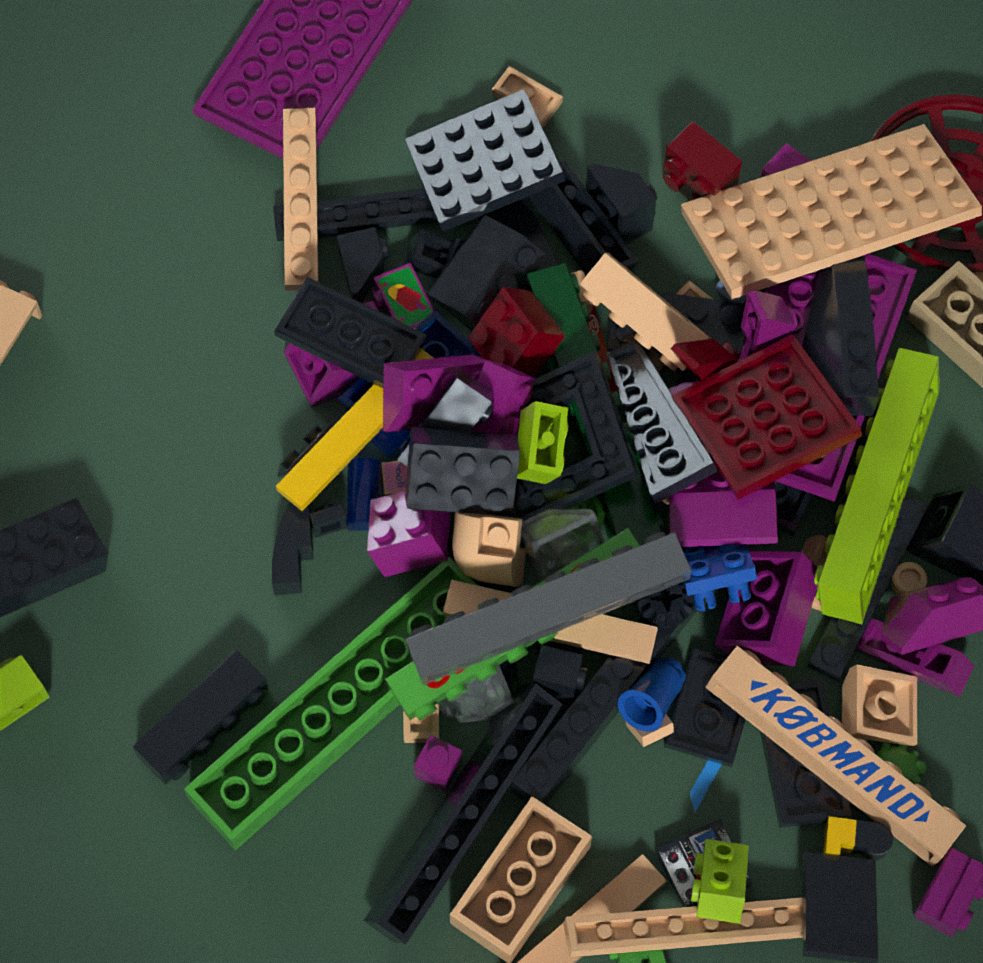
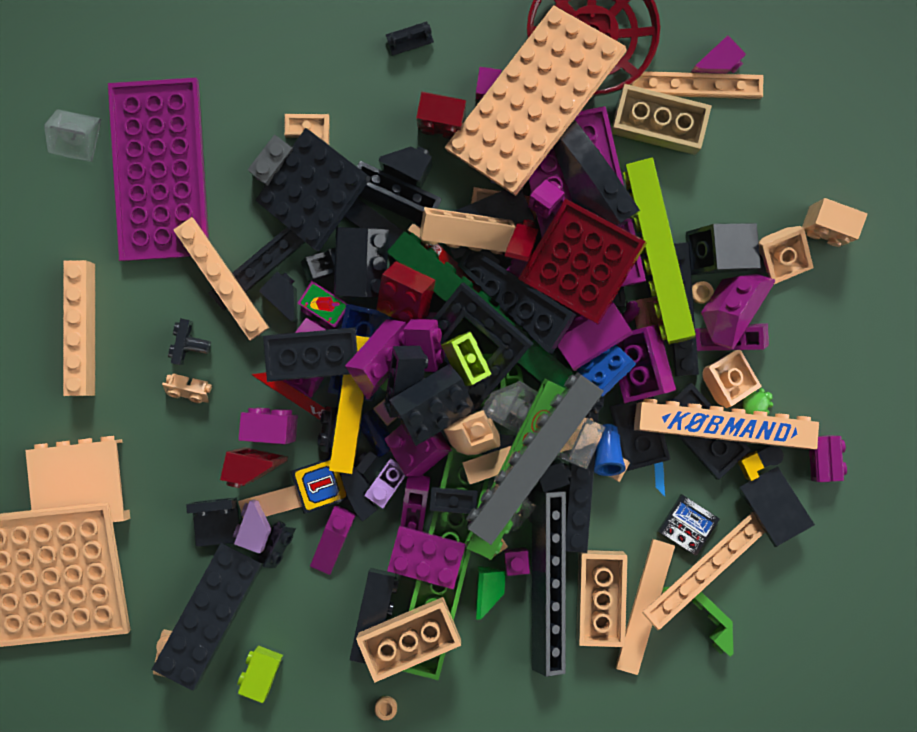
camera: 35 degrees left, 20 degrees up
(87, 156) = (79, 329): none -> light nougat brick
(88, 470) = (214, 520): none -> black bracket
(129, 508) = (254, 528): none -> lavender slope
(133, 852) = (385, 708): none -> light nougat tile
(152, 549) = (273, 553): none -> black hinge
(156, 293) = (177, 387): none -> light nougat hinge
(174, 501) = (275, 501): none -> light nougat tile
(184, 419) = (247, 465): none -> dark red slope
(205, 242) = (185, 342): none -> black plate
(218, 589) = (333, 539): none -> magenta slope
(231, 749) = (408, 639): none -> light nougat brick
(237, 391) = (268, 427): none -> magenta brick
(246, 512) = (318, 486): none -> slope
(288, 385) = (293, 395): none -> red sticker
(324, 670) = (426, 557): none -> magenta plate
(334, 559) = (385, 483): none -> lavender slope
(348, 615) = (415, 502): none -> magenta slope
(374, 771) = (489, 589): none -> green slope
(402, 612) = (453, 500): none -> black plate
(454, 101) = (270, 160): none -> dark grey brick
(621, 639) = (582, 443): none -> clear slope
(720, 70) = (410, 38): none -> black hinge
(721, 882) = (710, 535): lime brick -> none
(799, 543) = (631, 312): none -> magenta arm

